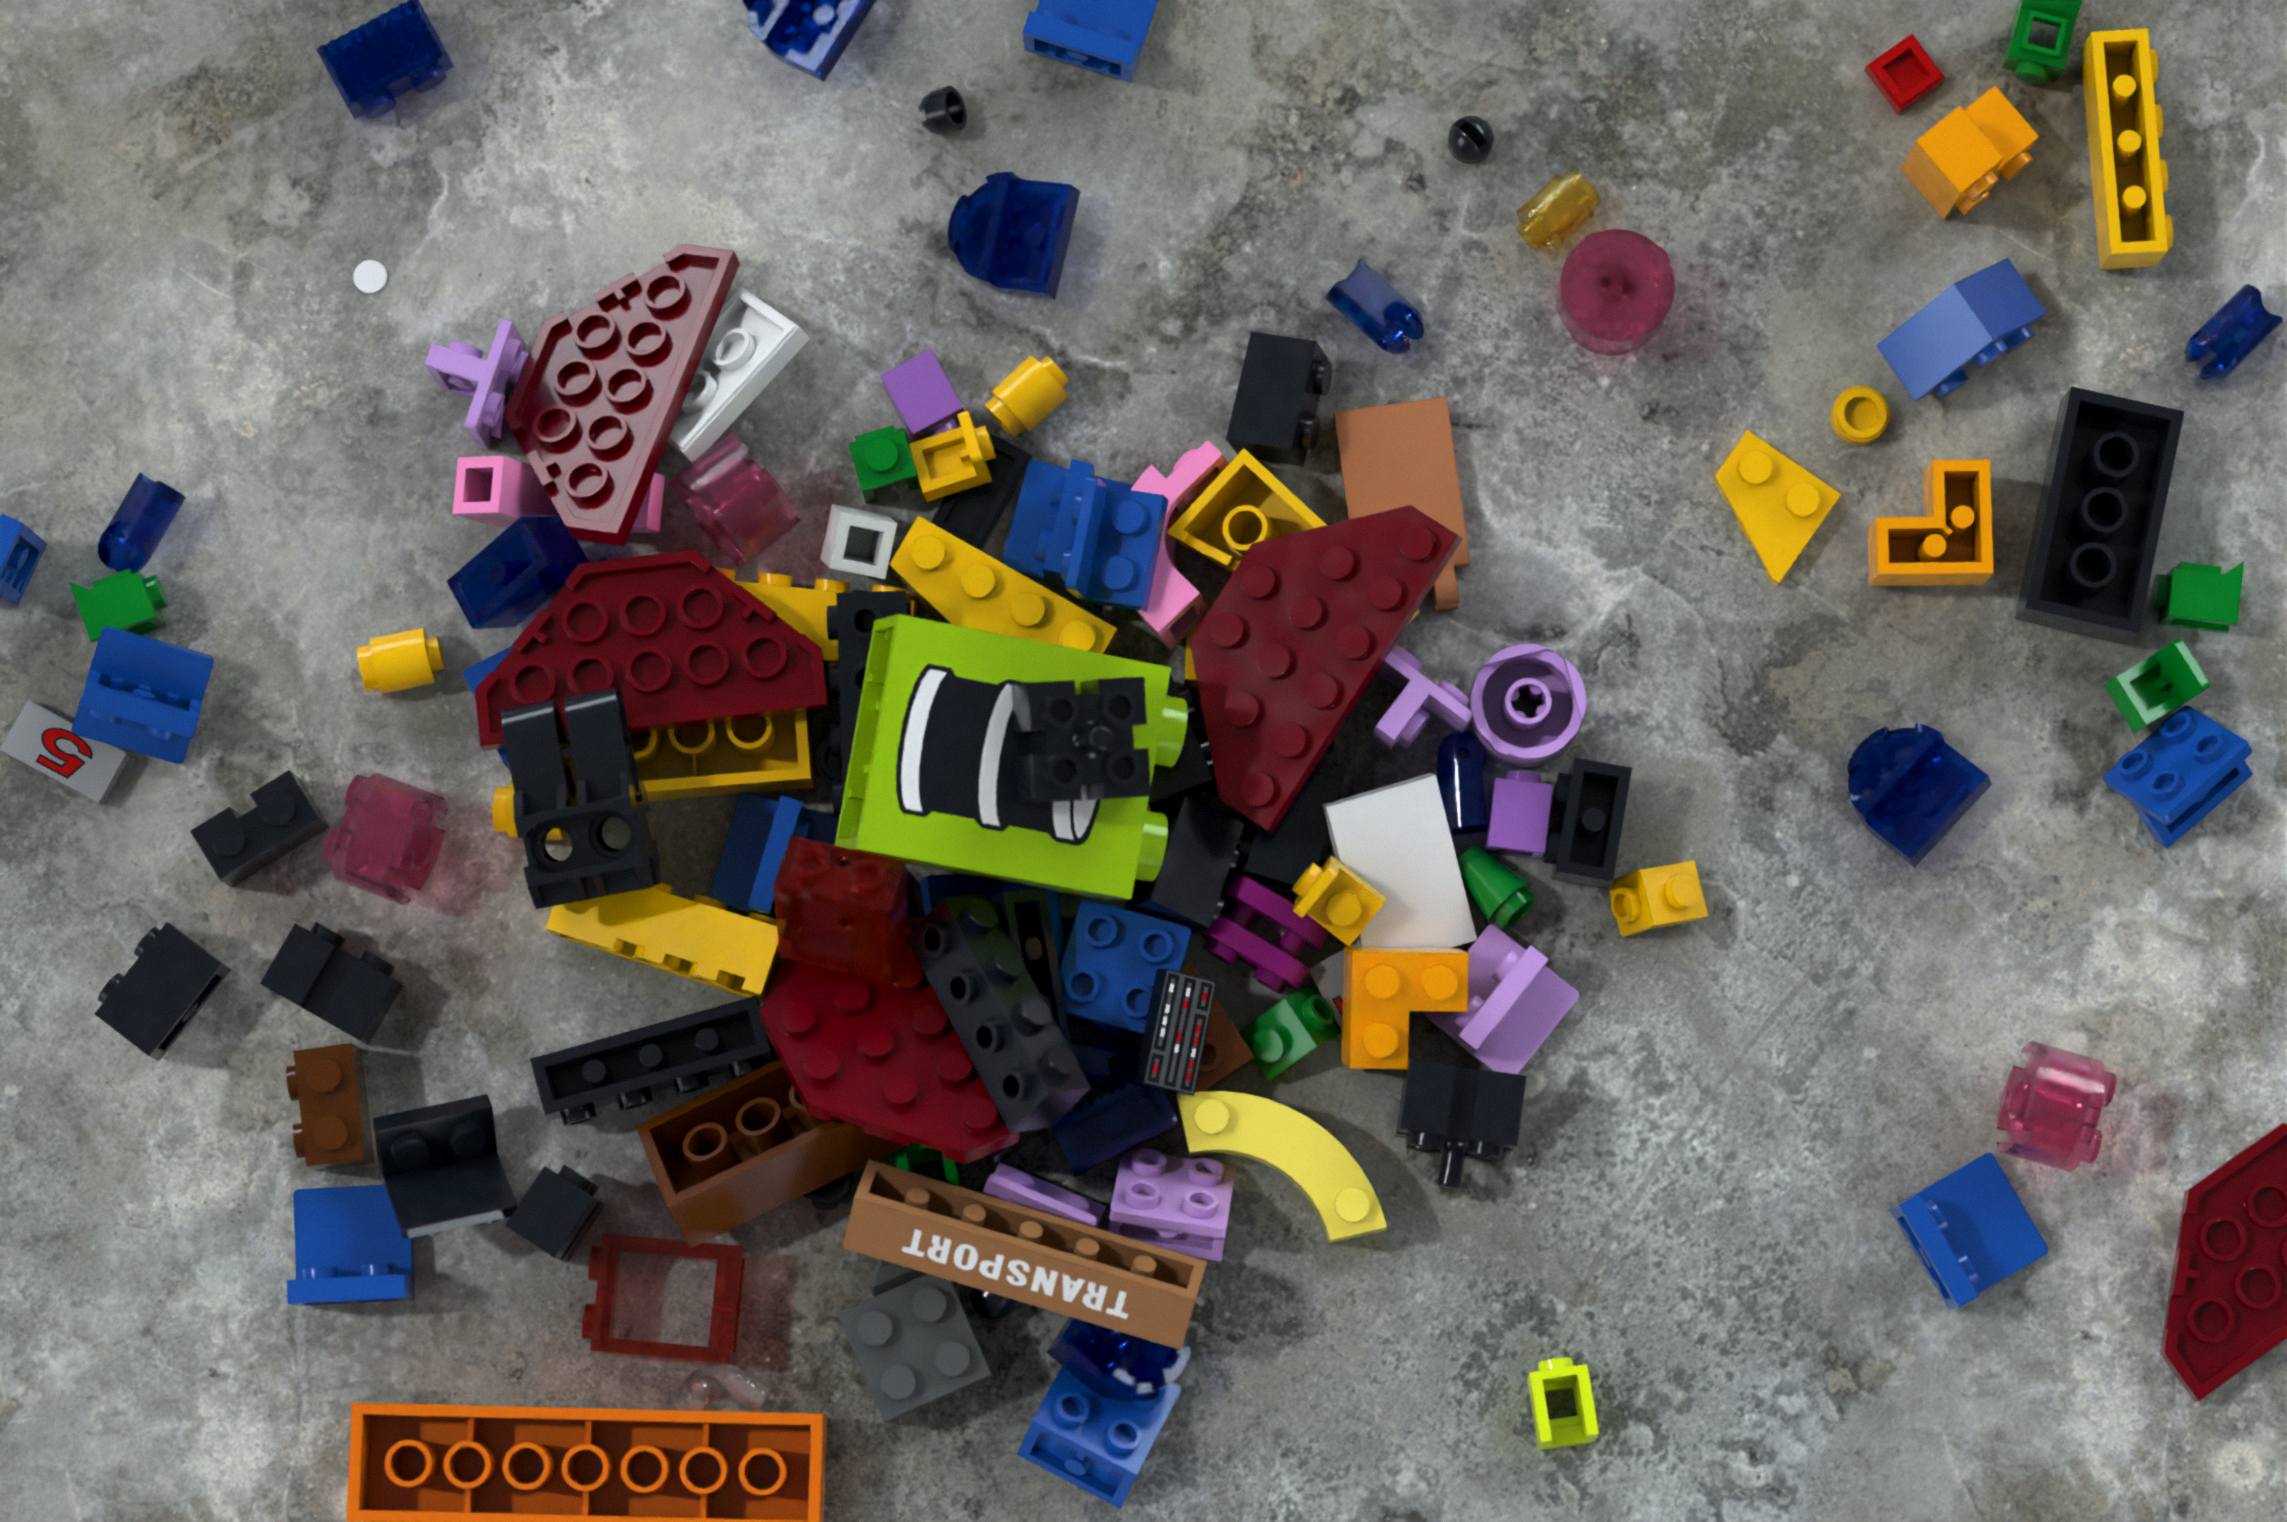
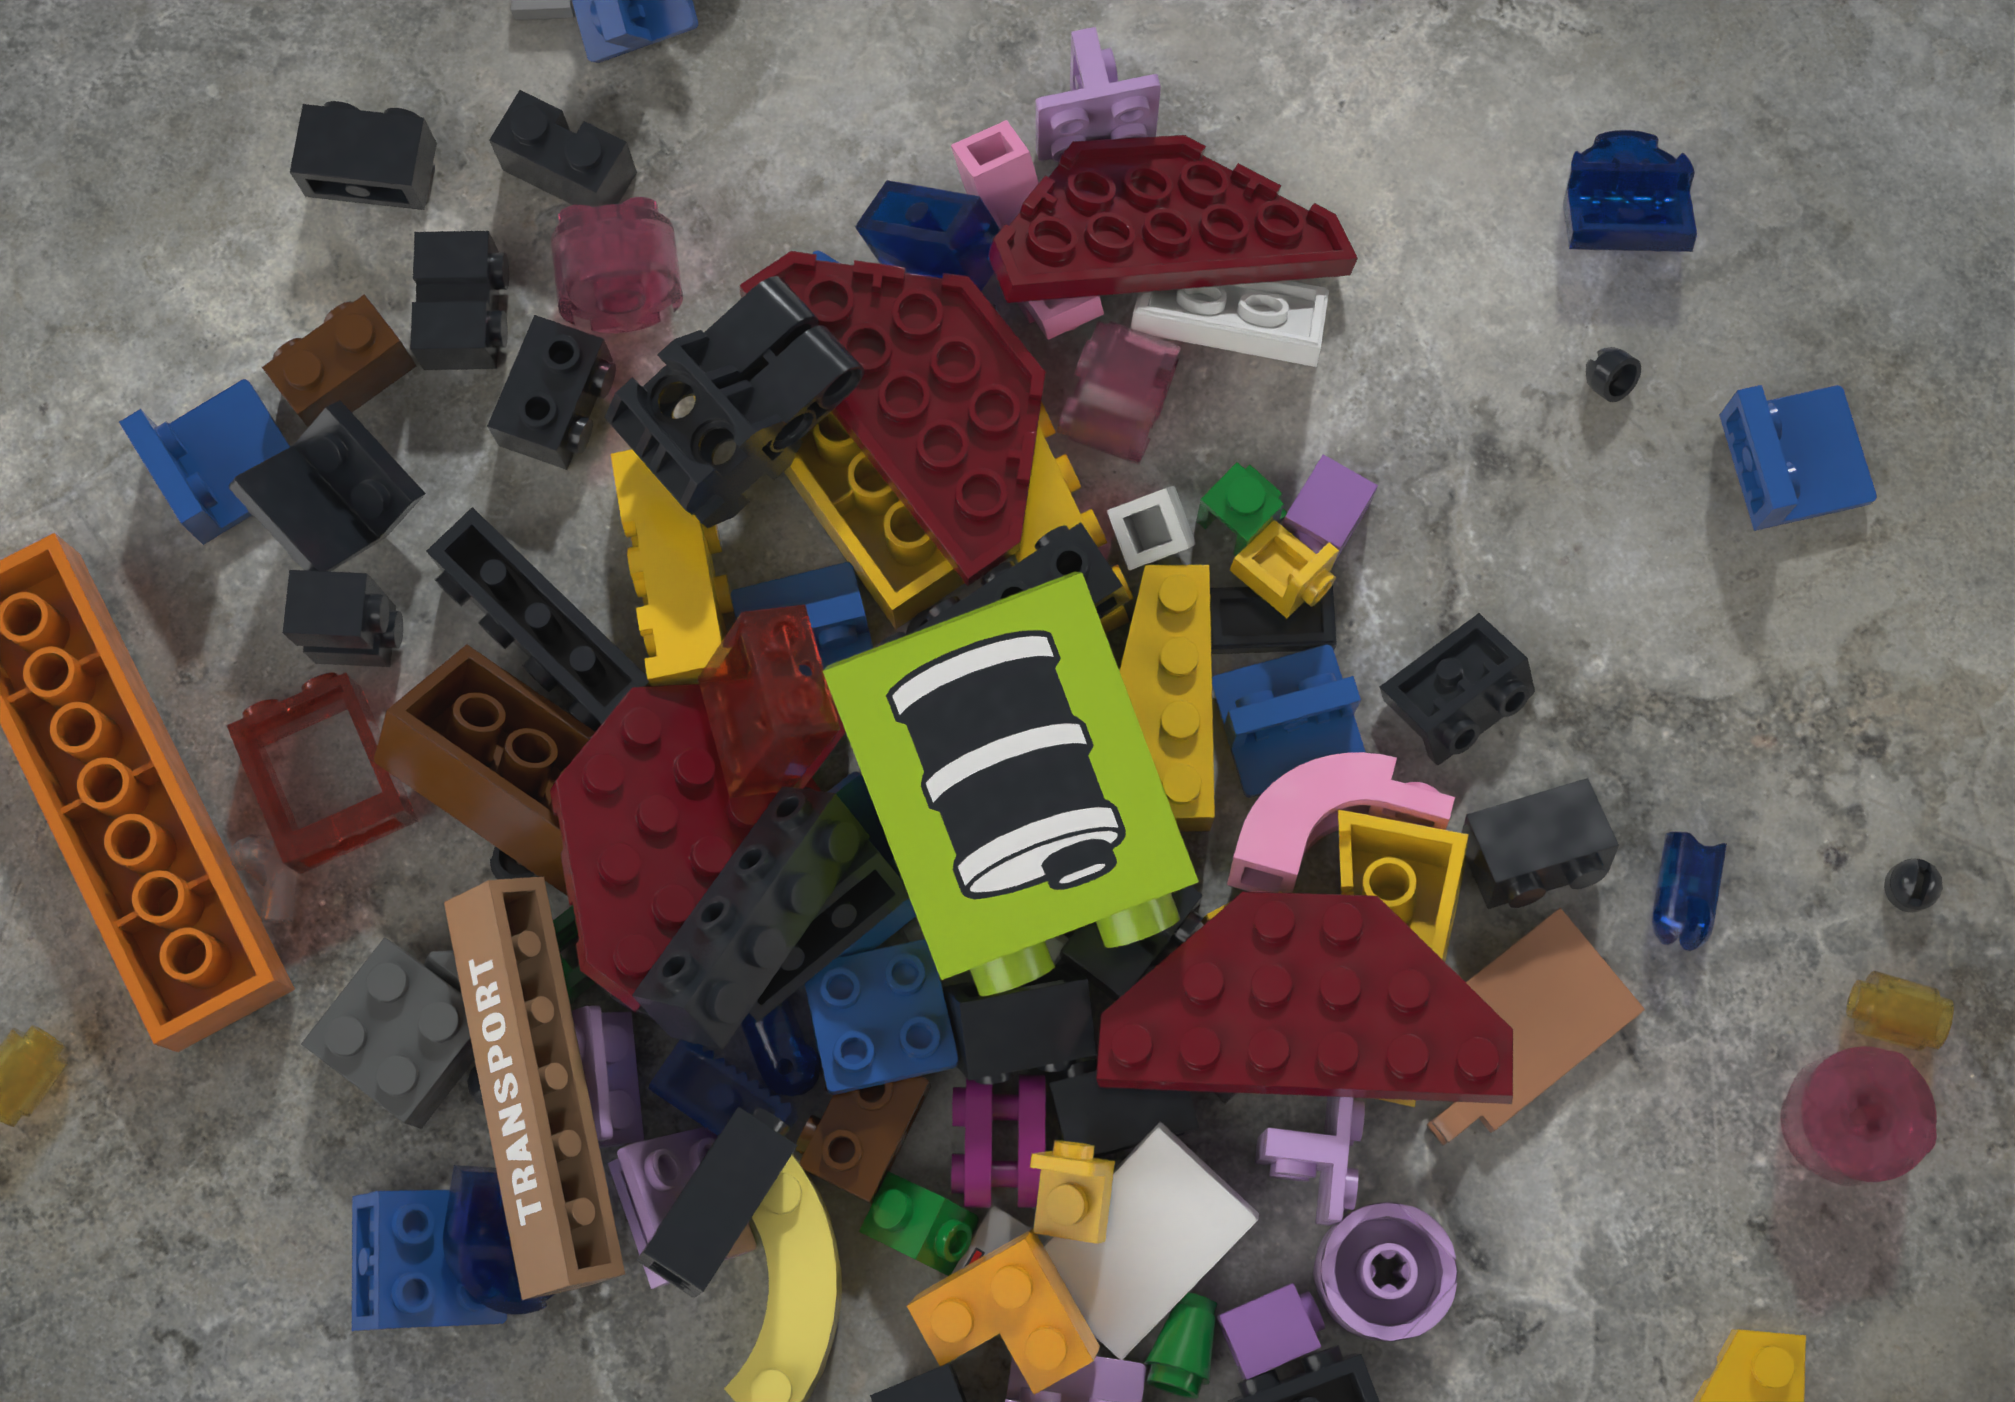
camera: 60 degrees right, 5 degrees down
(400, 661) = (792, 189): yellow brick -> none
(458, 948) = (552, 393): none -> black brick
(1014, 234) = (1539, 504): clear blue slope -> none
(1027, 395) = (1391, 606): yellow brick -> none
(1081, 740) = (1064, 831): black brick -> none
(1113, 546) = (1291, 762): blue bracket -> none
(1122, 382) = (1460, 688): none -> black bracket
(1175, 1032) = (844, 1105): tile -> none
(1197, 1157) = (719, 1200): none -> black window
(1462, 782) = (1269, 1252): clear blue piece -> none

